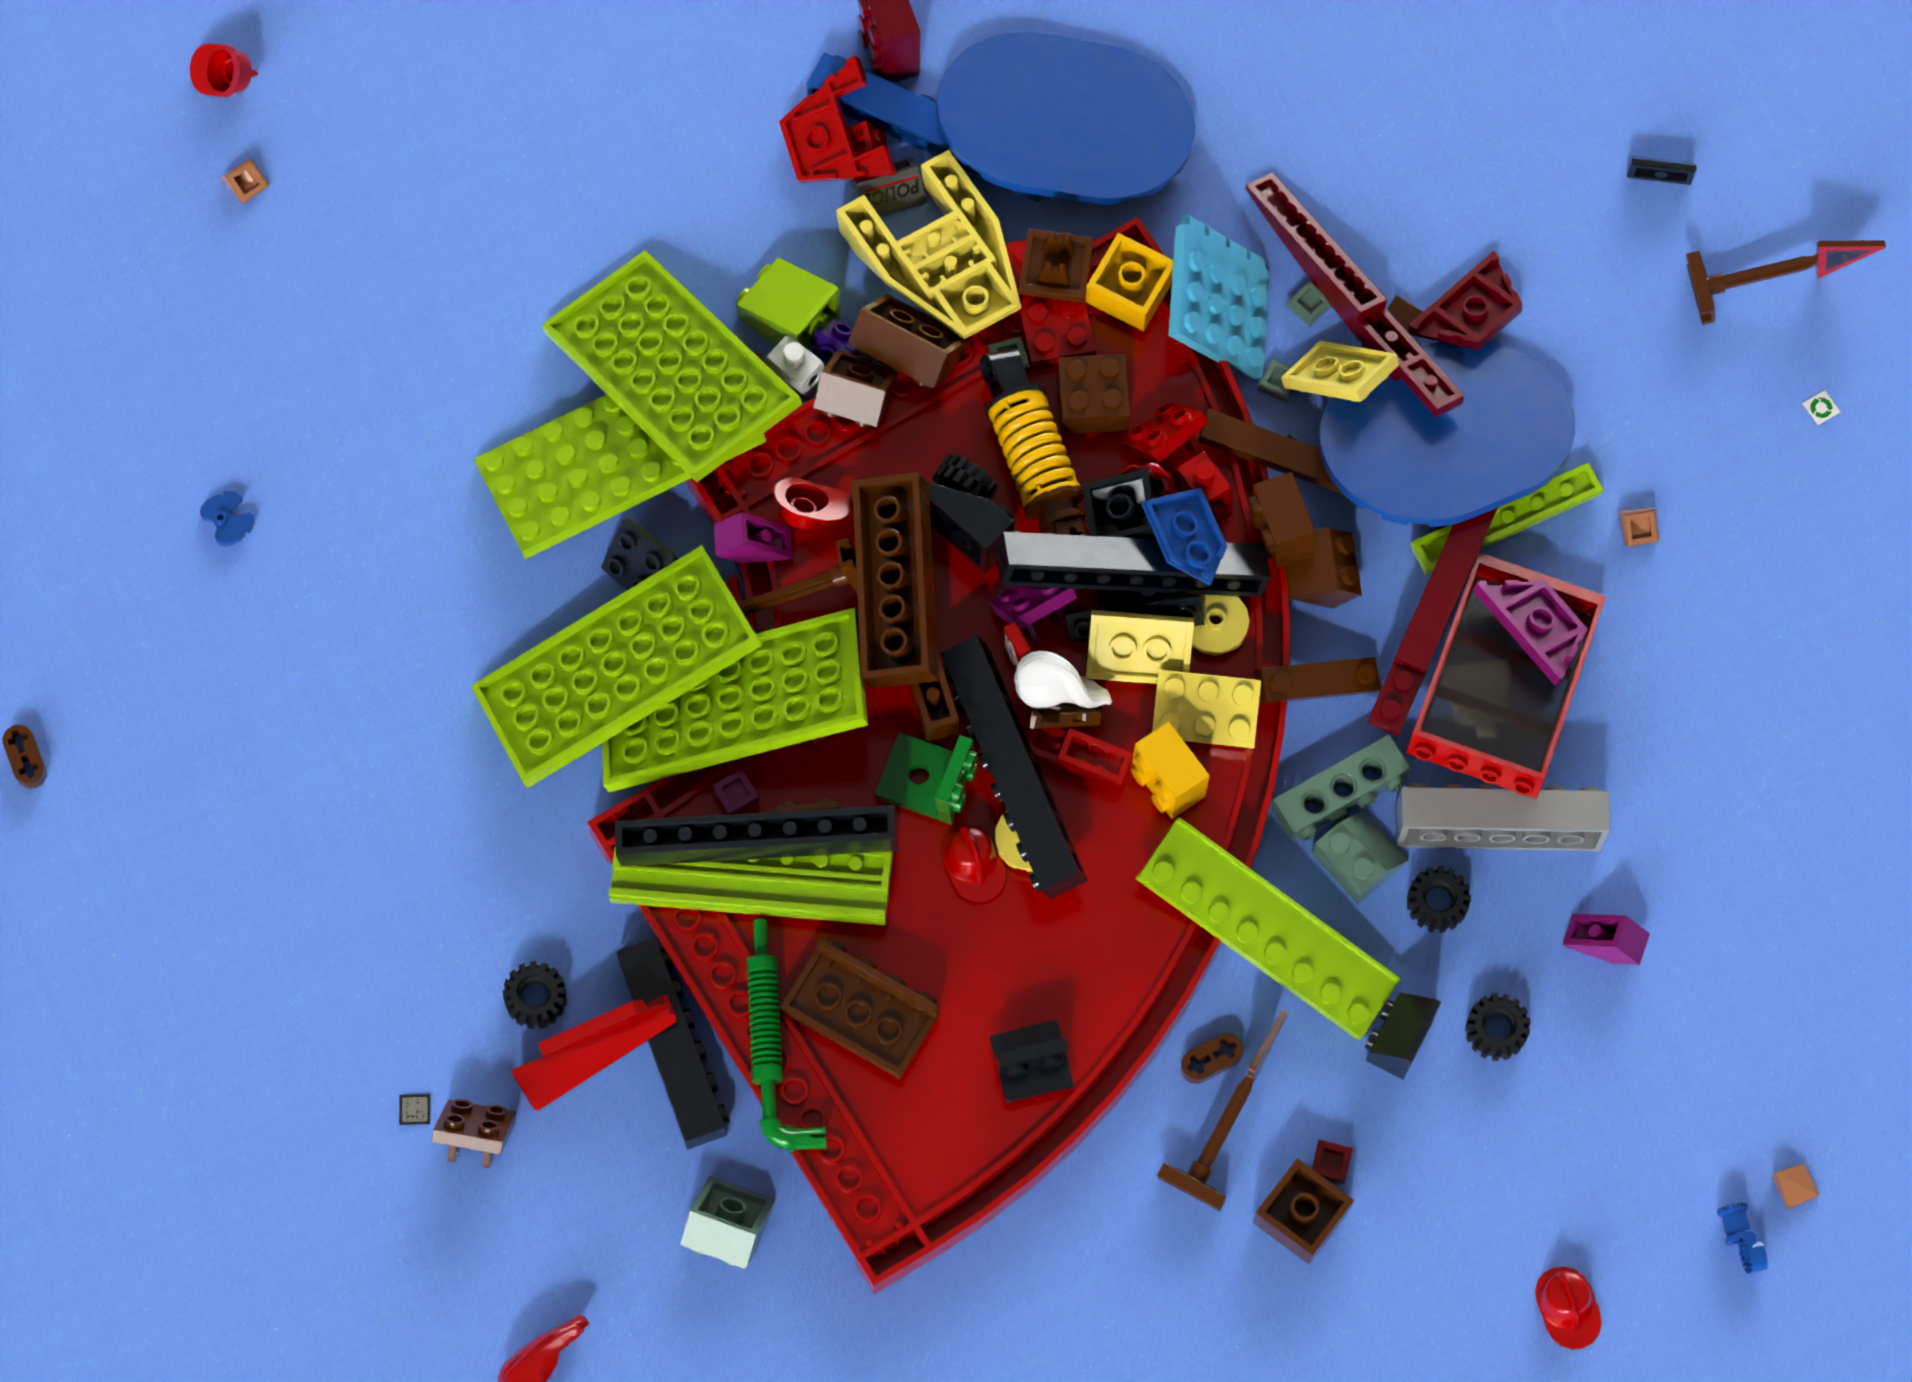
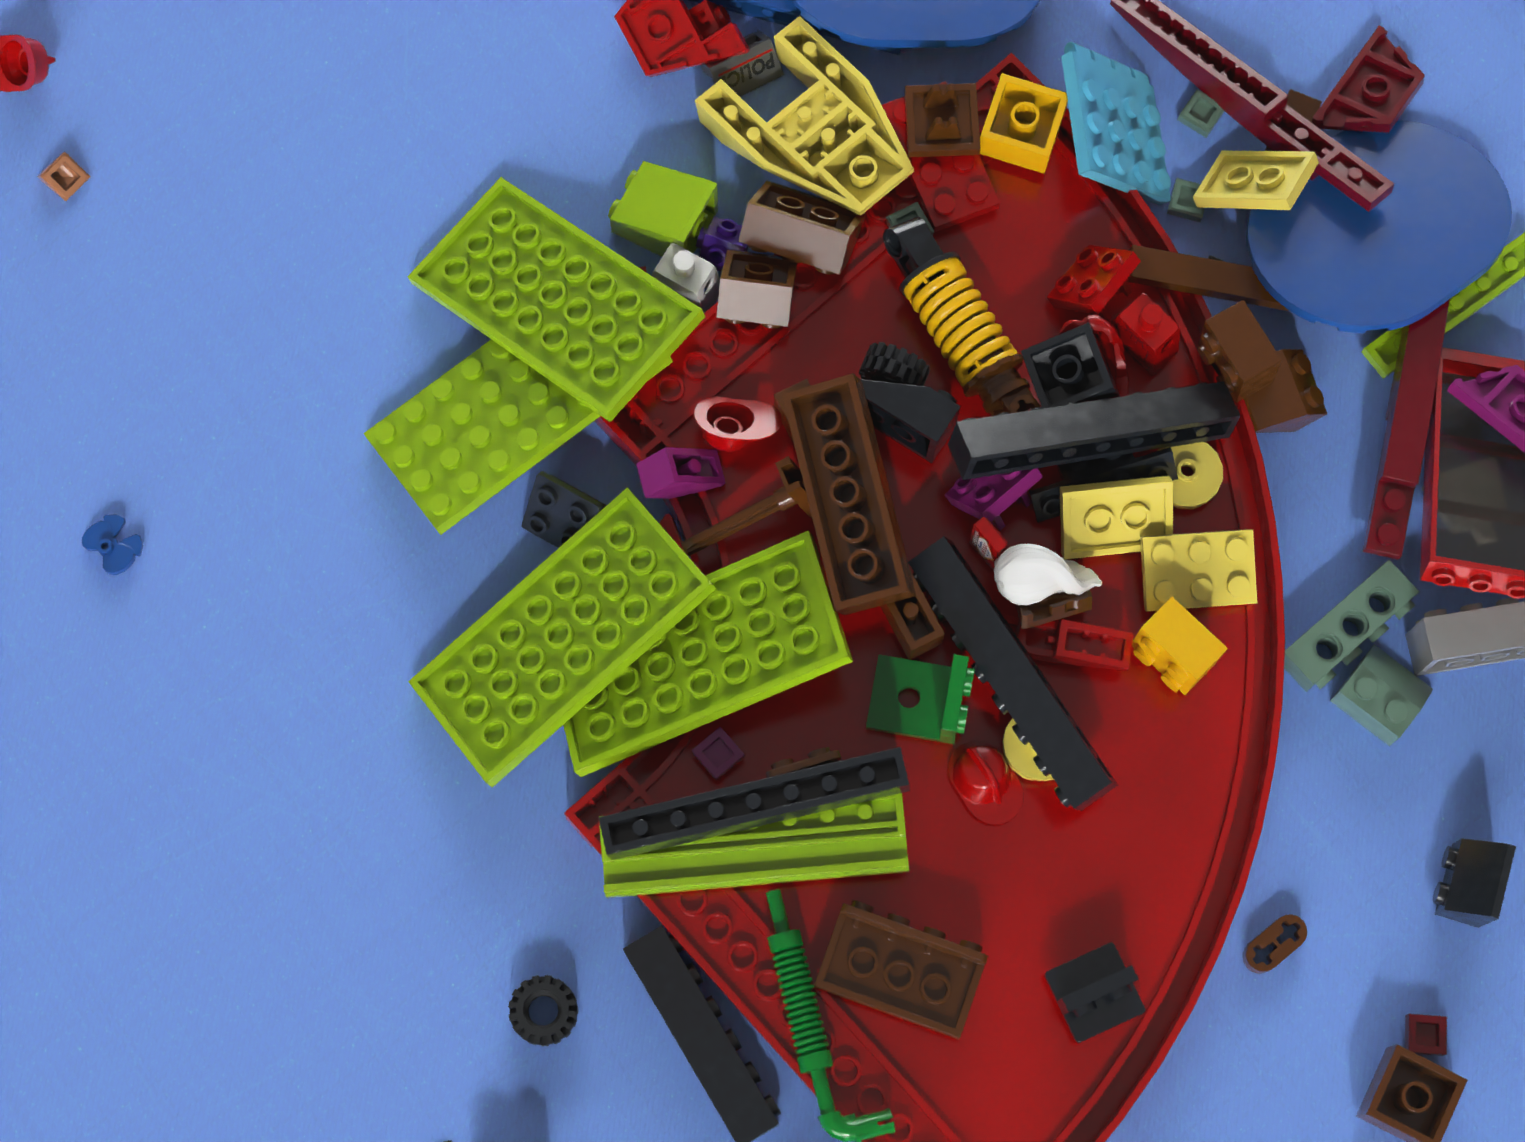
camera: 10 degrees left, 5 degrees up
(591, 1047) = (616, 1062): red wedge -> none
(1093, 394) = (1008, 250): reddish brown brick -> none
(1187, 532) = (1147, 386): blue tile -> none
(1195, 1180) = (1288, 1084): reddish brown piece -> none
(1268, 928) = (1310, 795): lime plate -> none
(1318, 680) = (1304, 514): reddish brown plate -> none
(1438, 879) = (1495, 718): black tyre -> none

